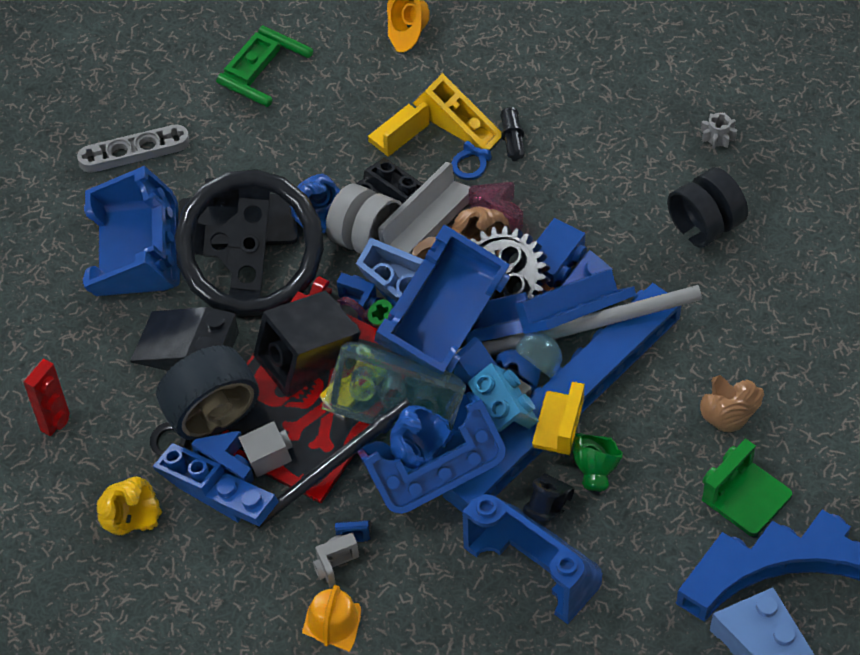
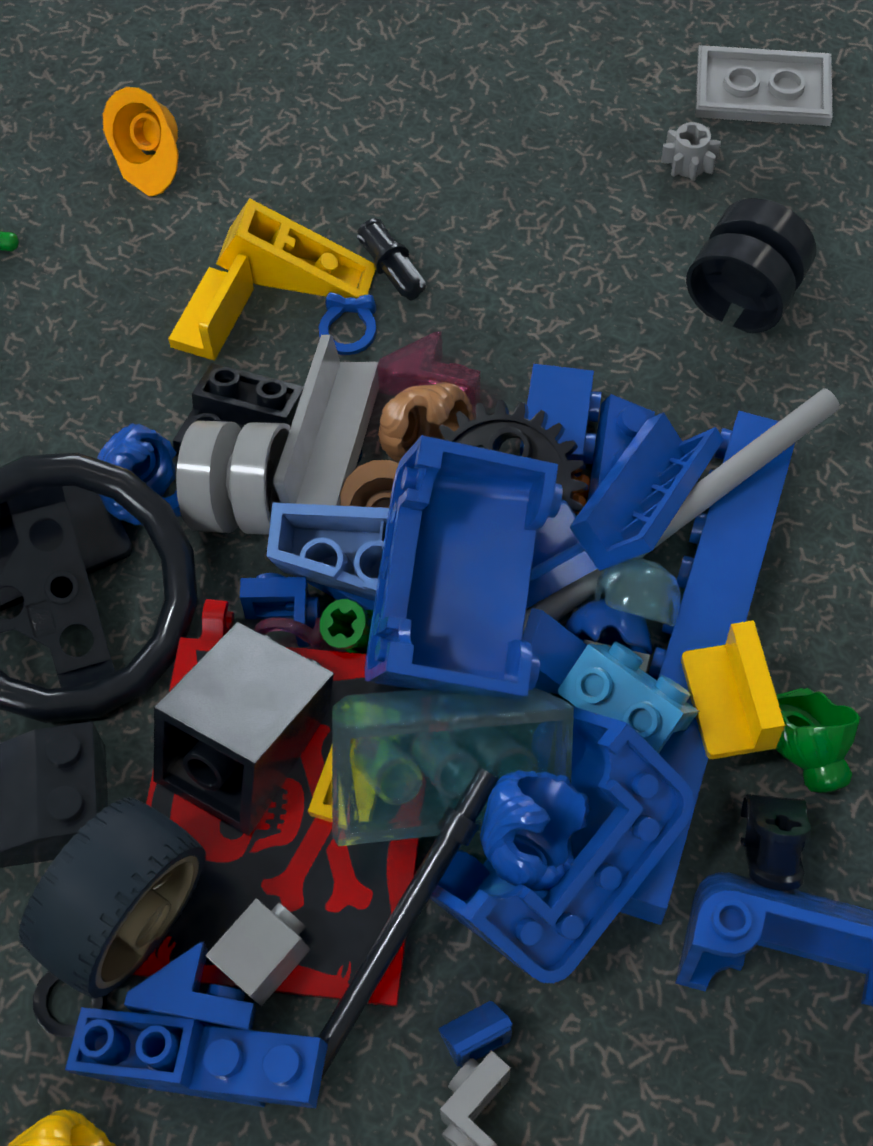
camera: 25 degrees left, 5 degrees up
(791, 105) = (764, 85): none -> light grey tile

